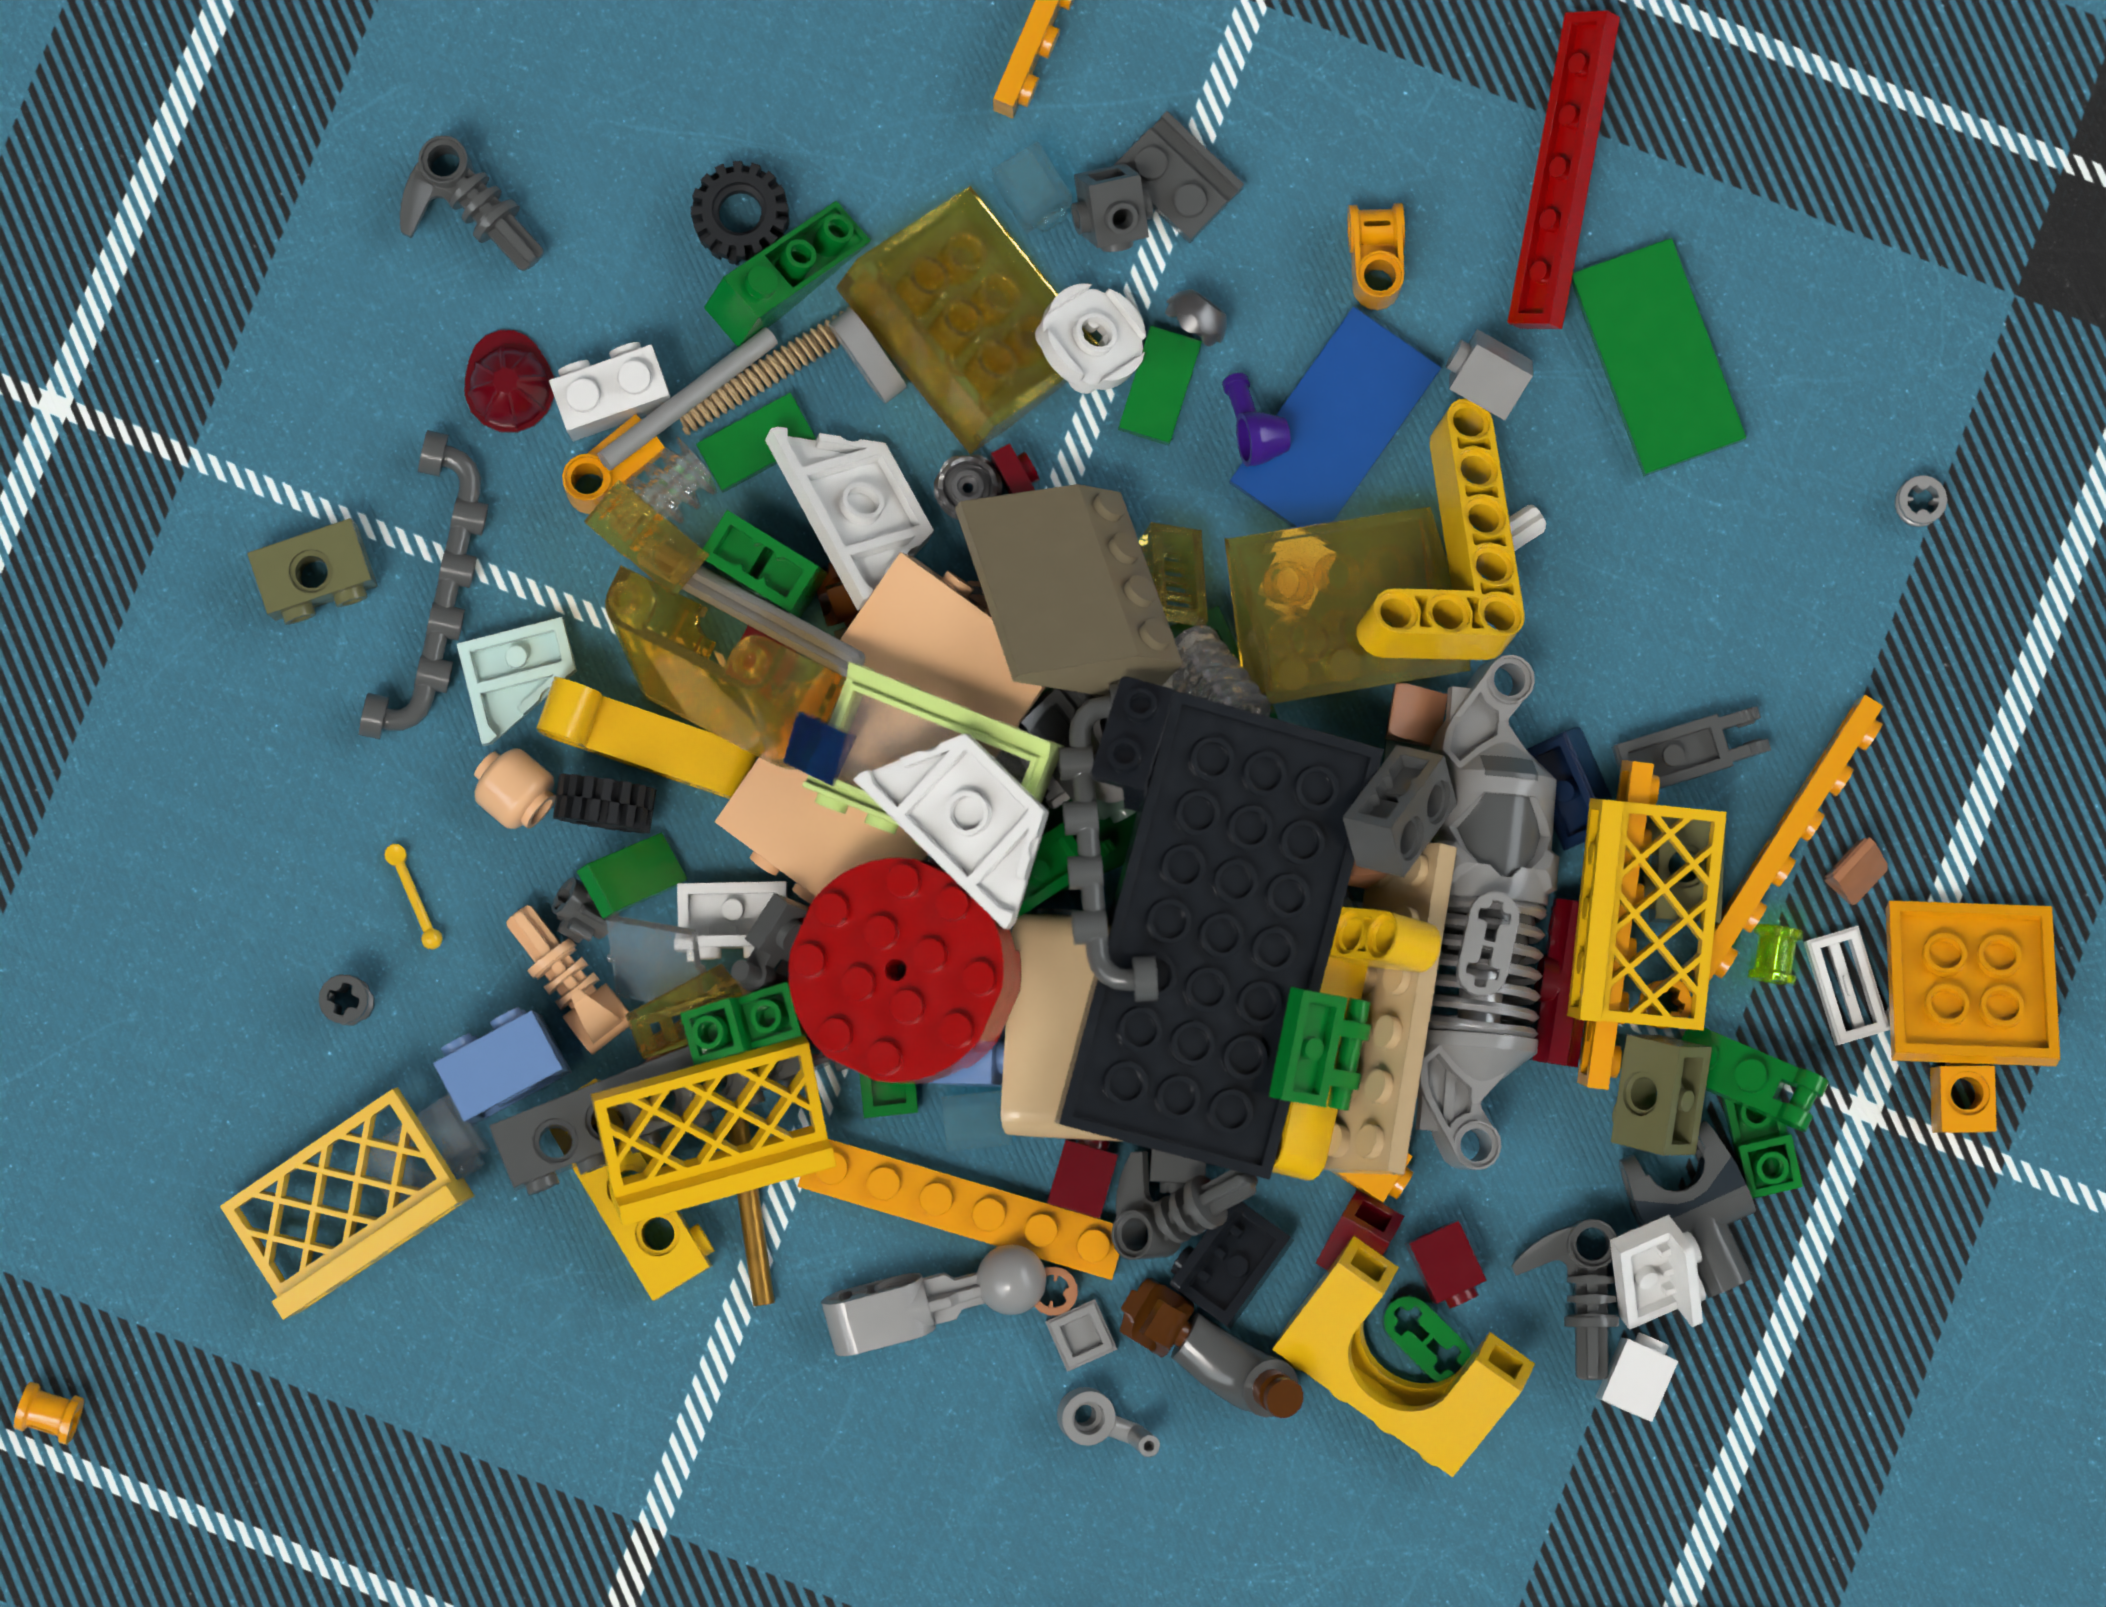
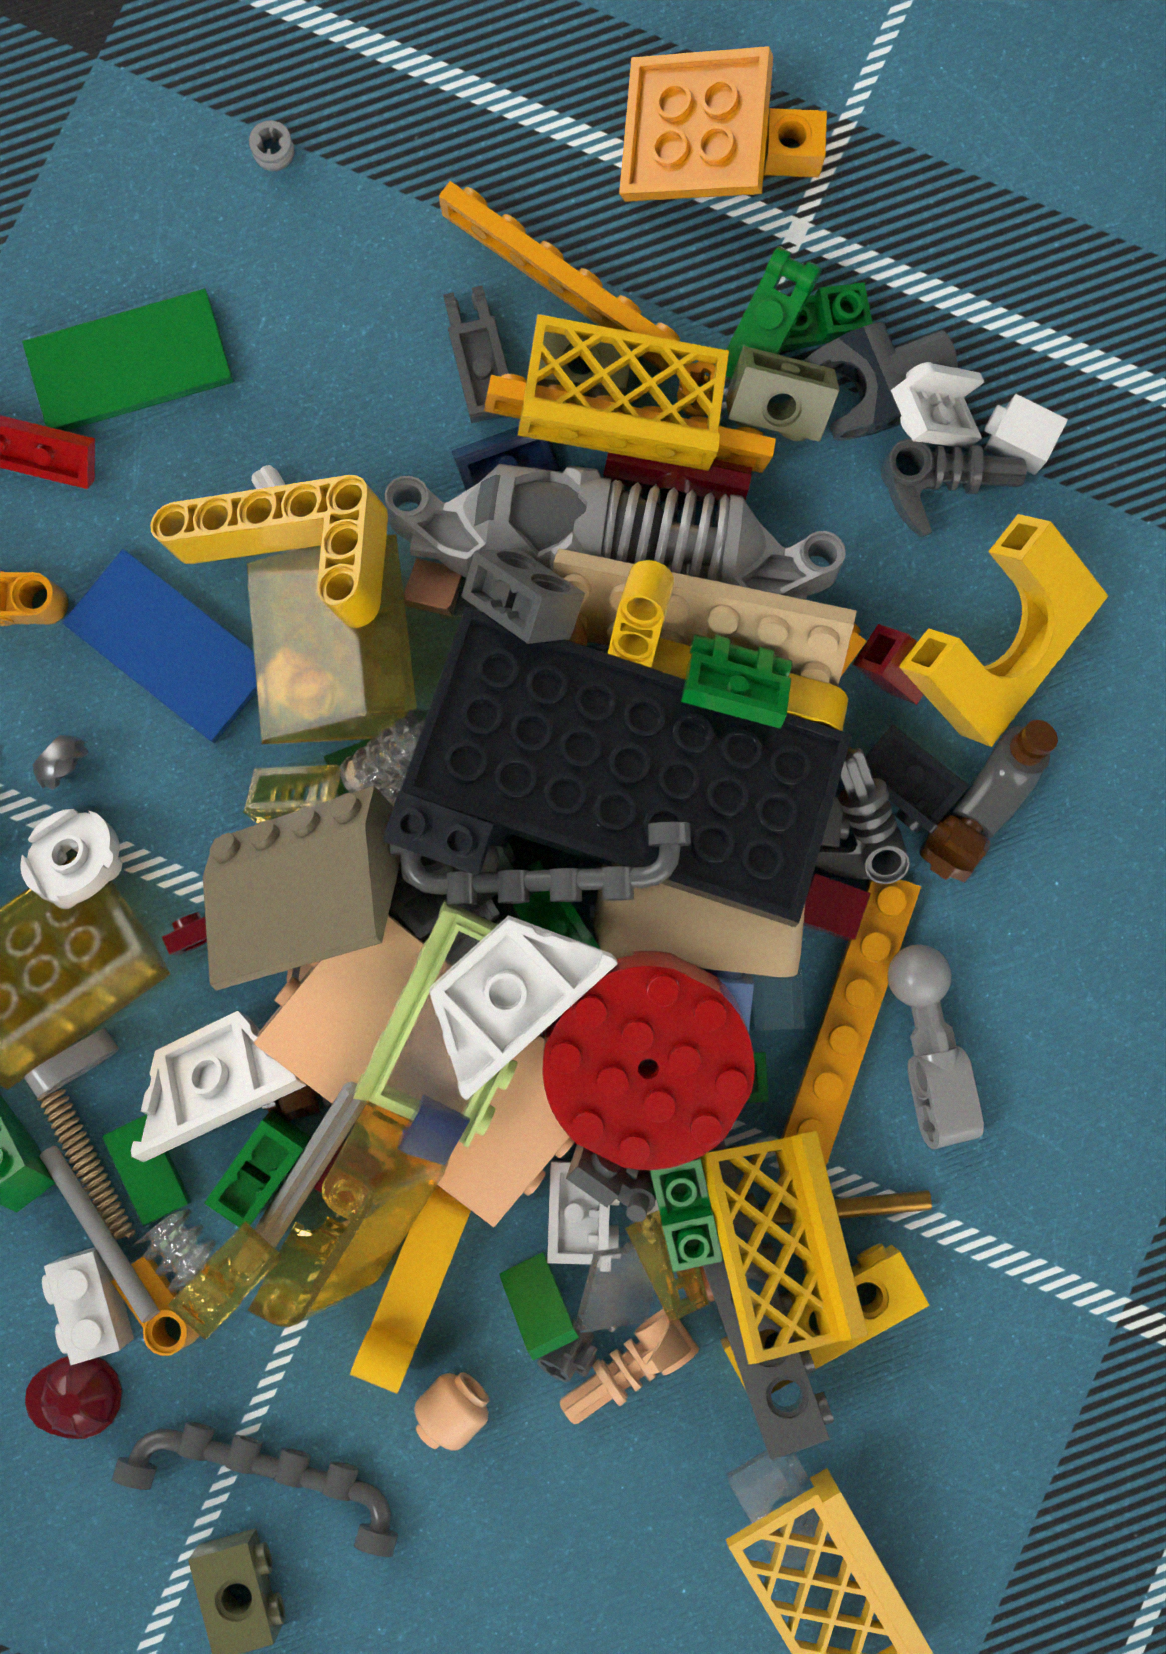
camera: 85 degrees left, 0 degrees up
(341, 984) = (648, 1588): dark grey bush -> none
(397, 856) = (506, 1520): yellow hinge -> none
(502, 1065) = (712, 1444): medium blue brick -> none
(513, 673) = (342, 1409): light aqua wing -> none
(604, 803) = (470, 1328): black tyre -> none
(961, 471) = (186, 984): flat silver plate -> none
(1069, 1293) = (929, 924): nougat bush -> none
(1081, 1335) = (967, 916): light grey tile -> none
(1101, 1422) = (1047, 900): light grey plate -> none
(1160, 385) = (121, 799): green tile -> none
(1258, 433) = (169, 712): dark purple bar -> none
(1435, 1329) = (975, 606): green beam -> none
(1446, 1264) = (919, 591): dark red brick -> none
(1489, 373) = (130, 504): light grey brick -> none
(1501, 947) = (652, 513): light grey beam -> none
(1775, 954) = (661, 293): clear neon green bush -> none
(1826, 992) = (695, 254): white tile -> none
(1857, 871) = (589, 222): nougat slope -> none

